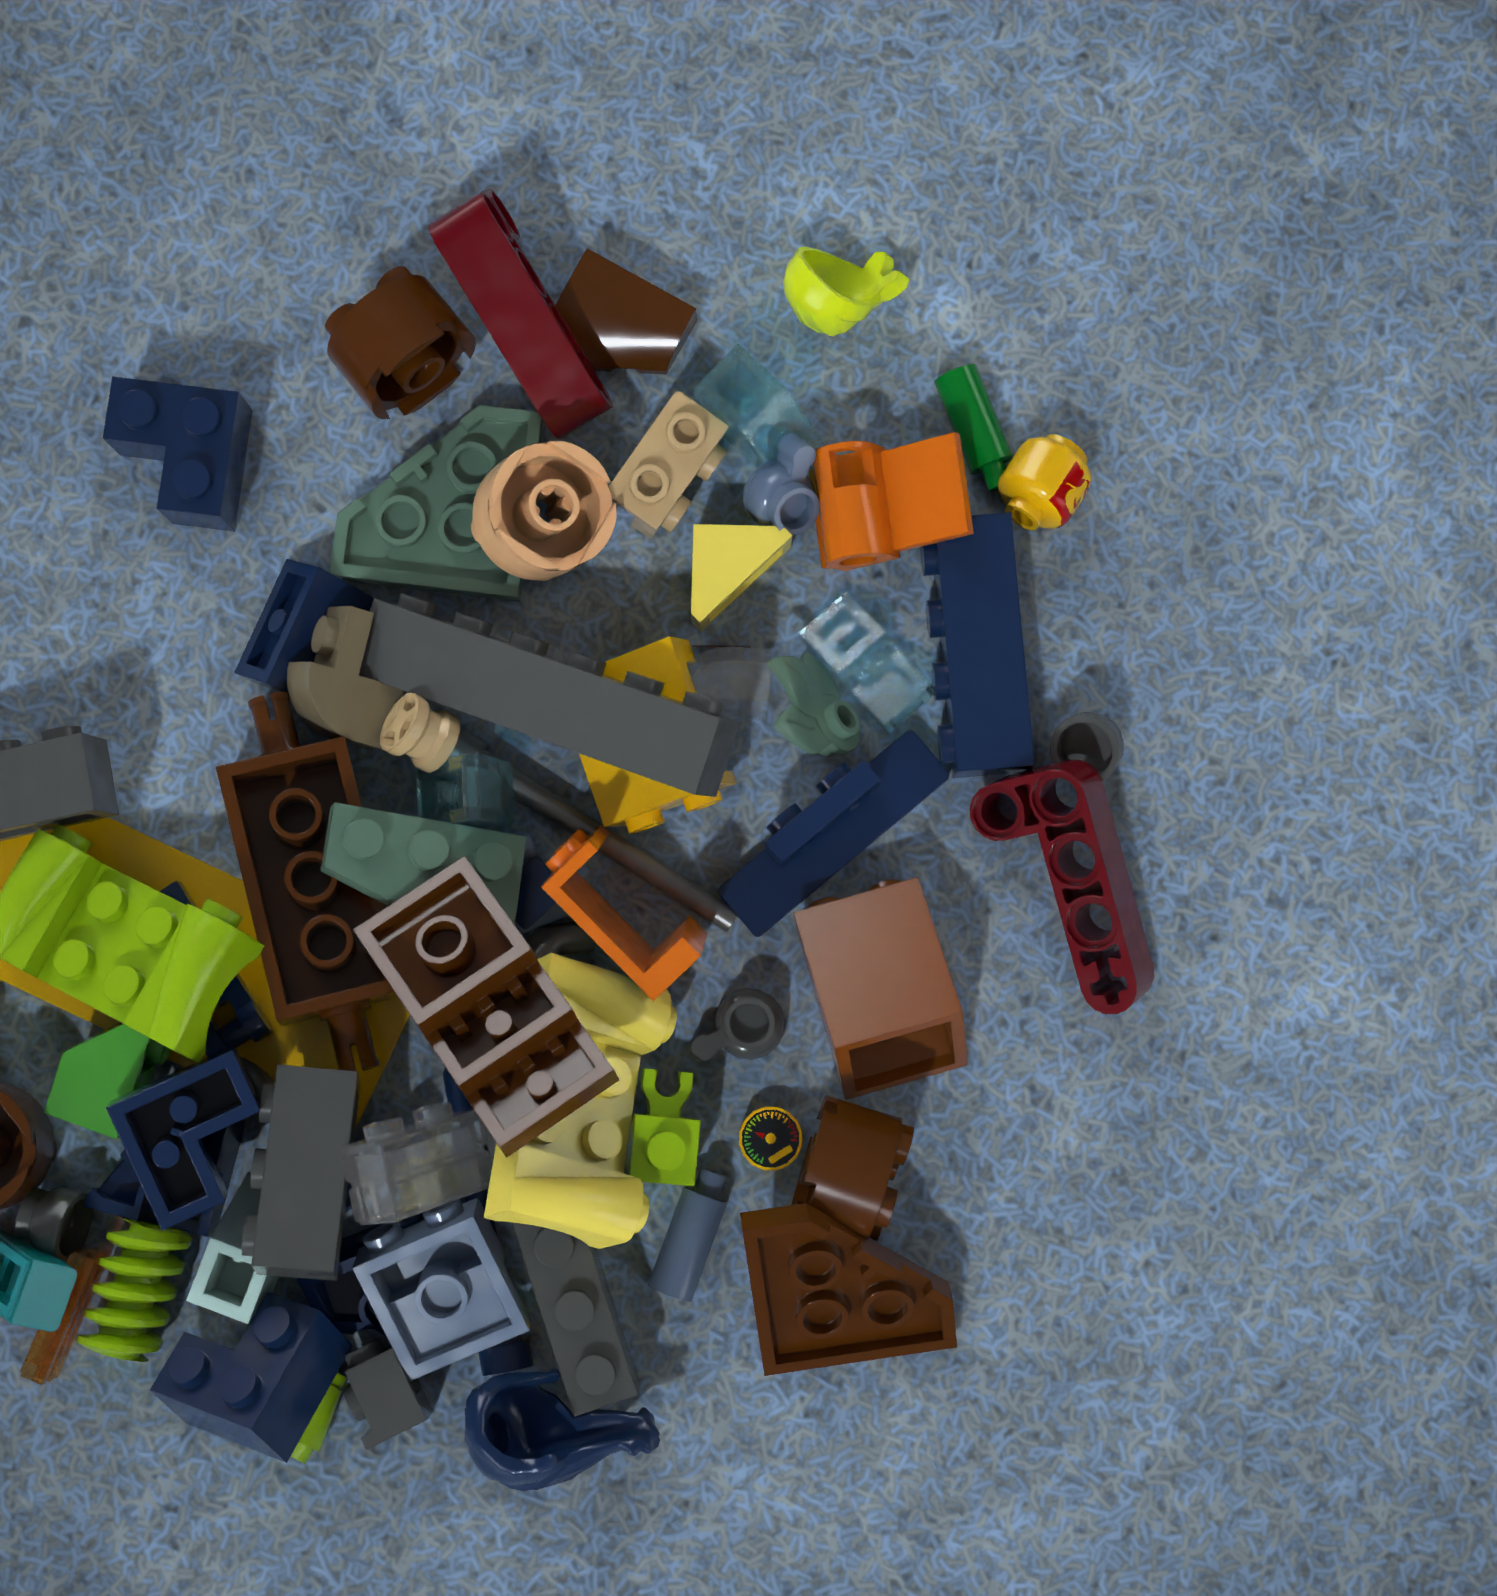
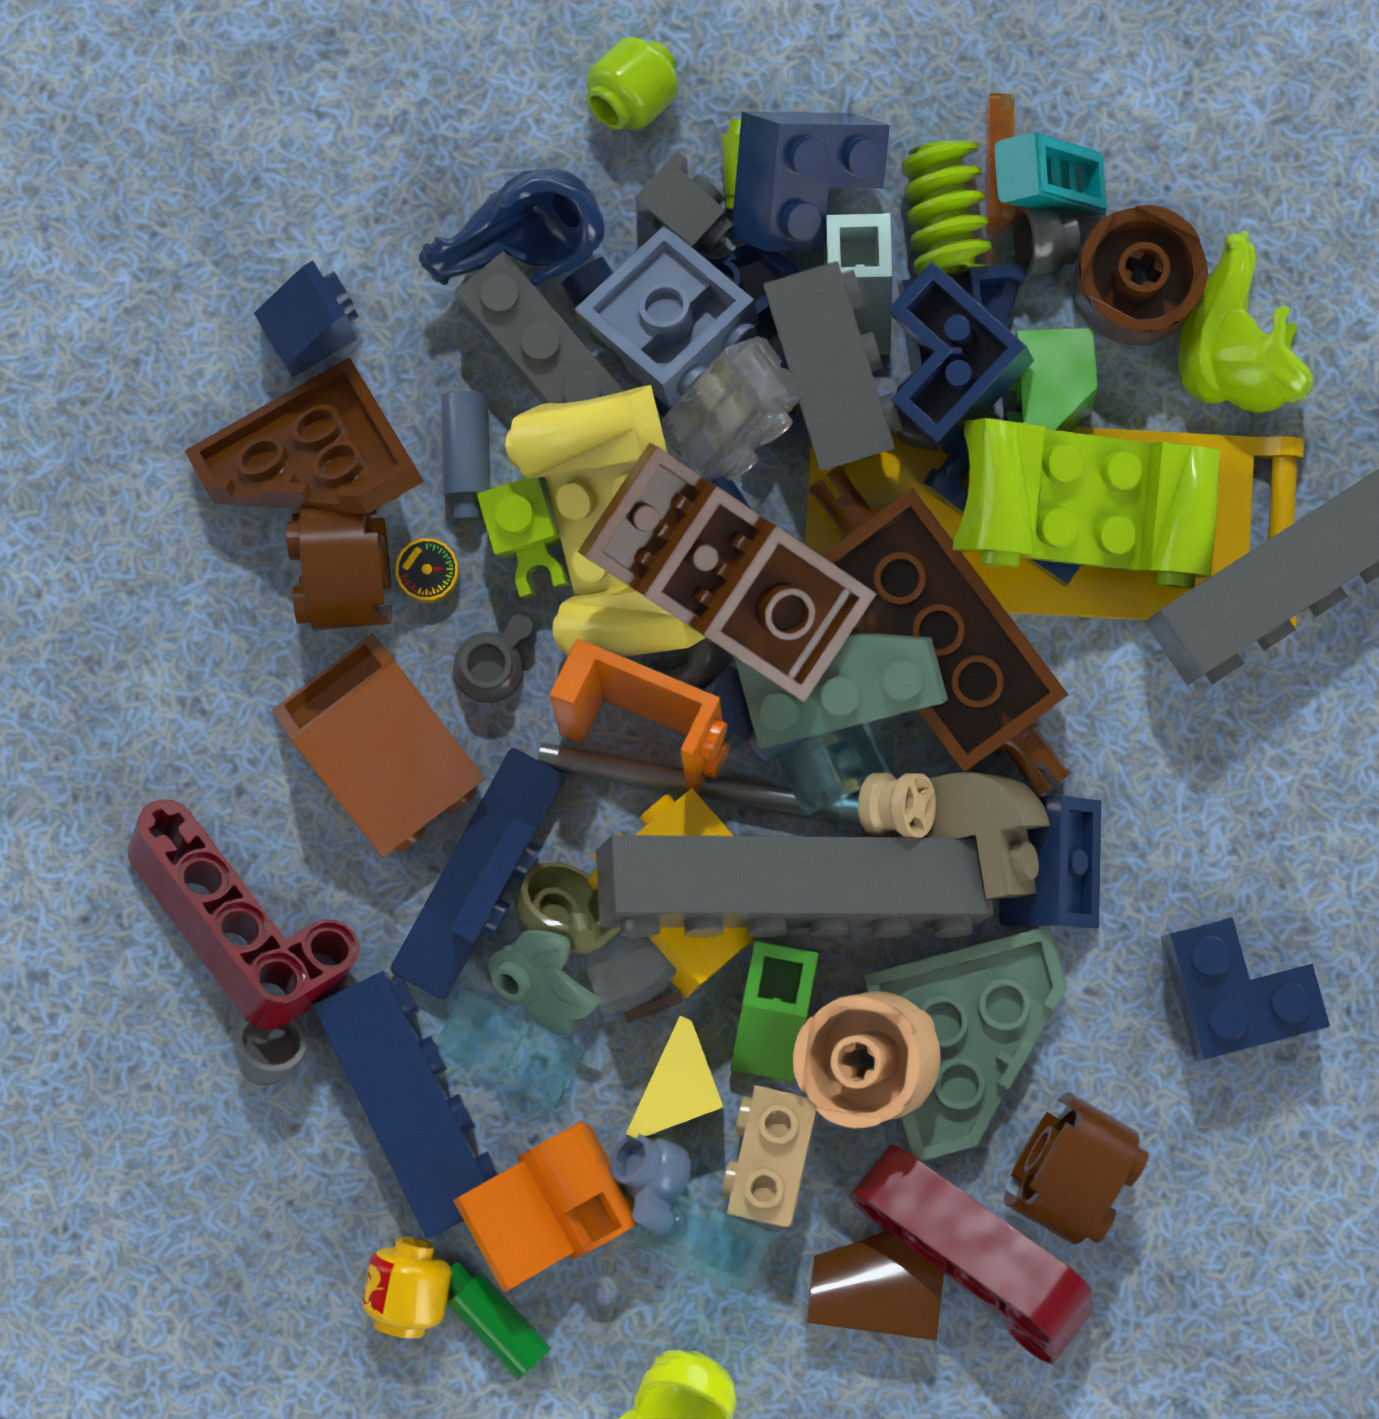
camera: 160 degrees right, 0 degrees up
(384, 1538) = (632, 84): none -> lime head
(610, 597) = (773, 1010): none -> bright green slope
(767, 766) = (562, 902): none -> olive piece
(789, 1427) = (308, 318): none -> dark blue slope

